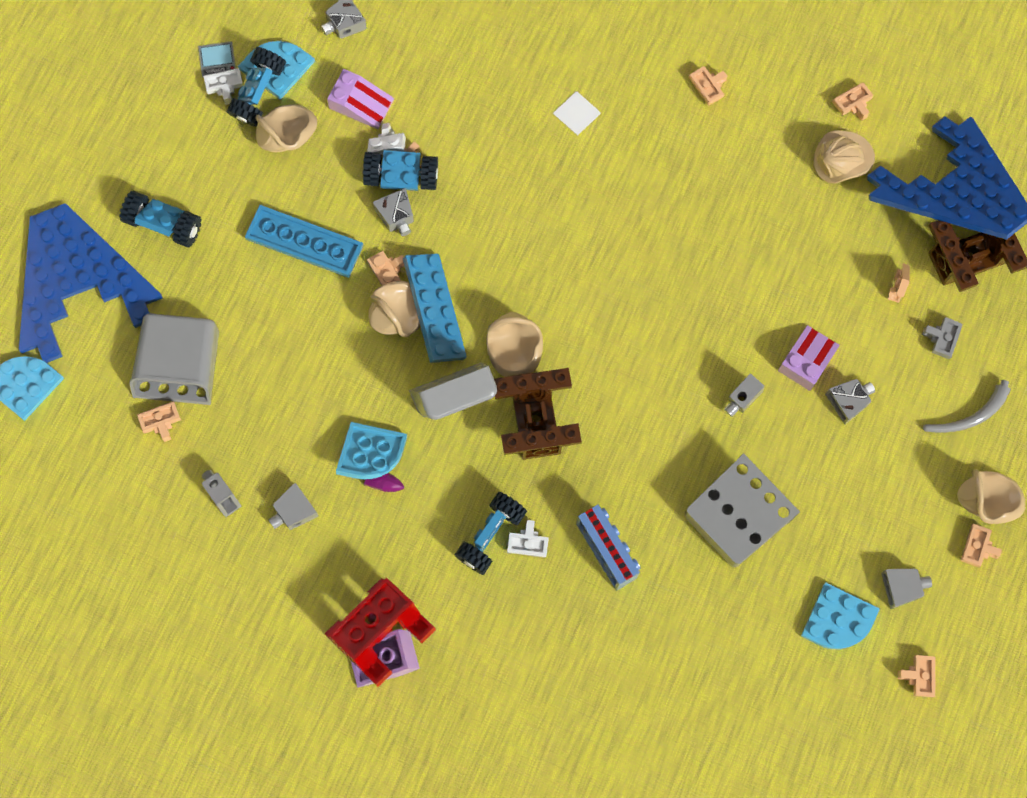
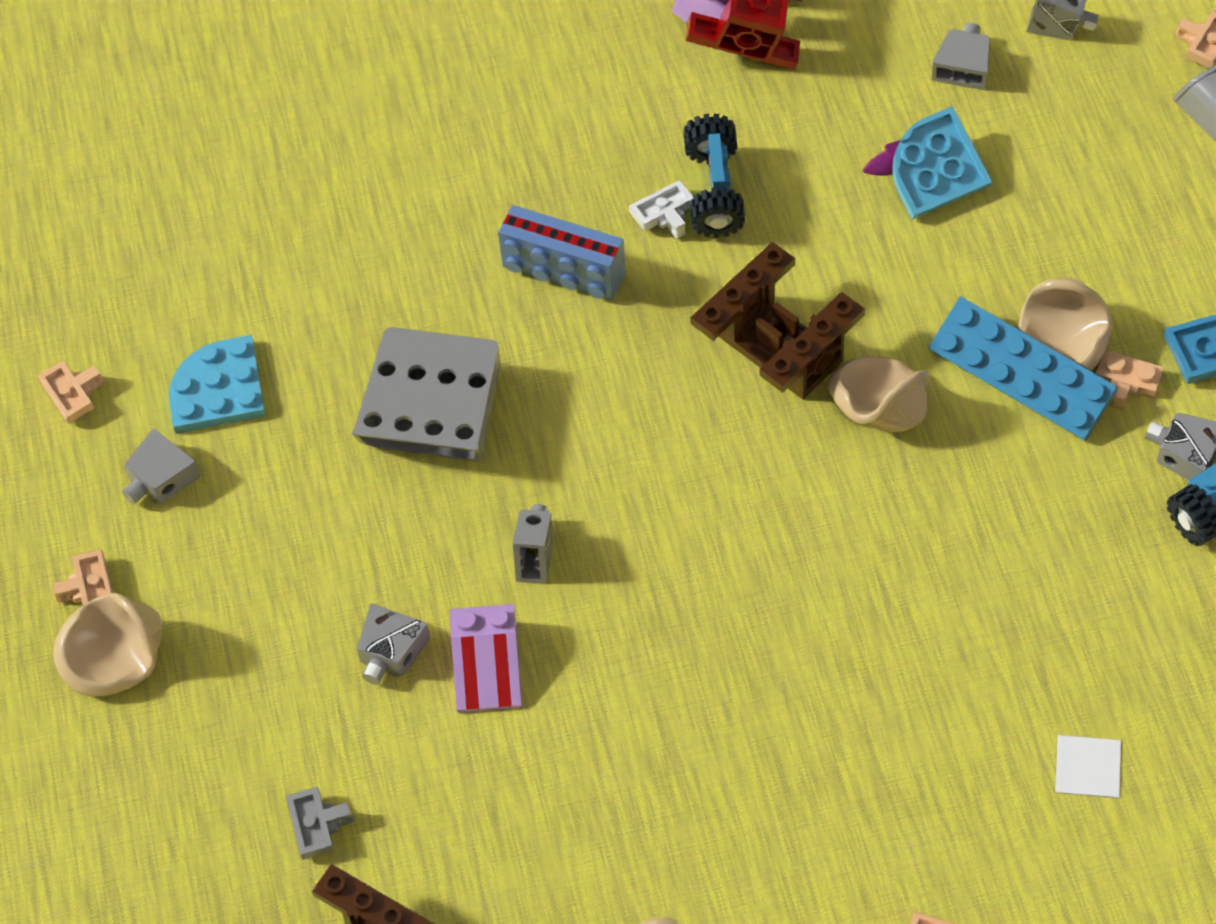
camera: 150 degrees right, 15 degrees down
(454, 392) = (897, 238): light grey piece -> none
(902, 279) = (428, 832): light nougat hinge -> none
(989, 409) = (183, 778): light grey animal -> none

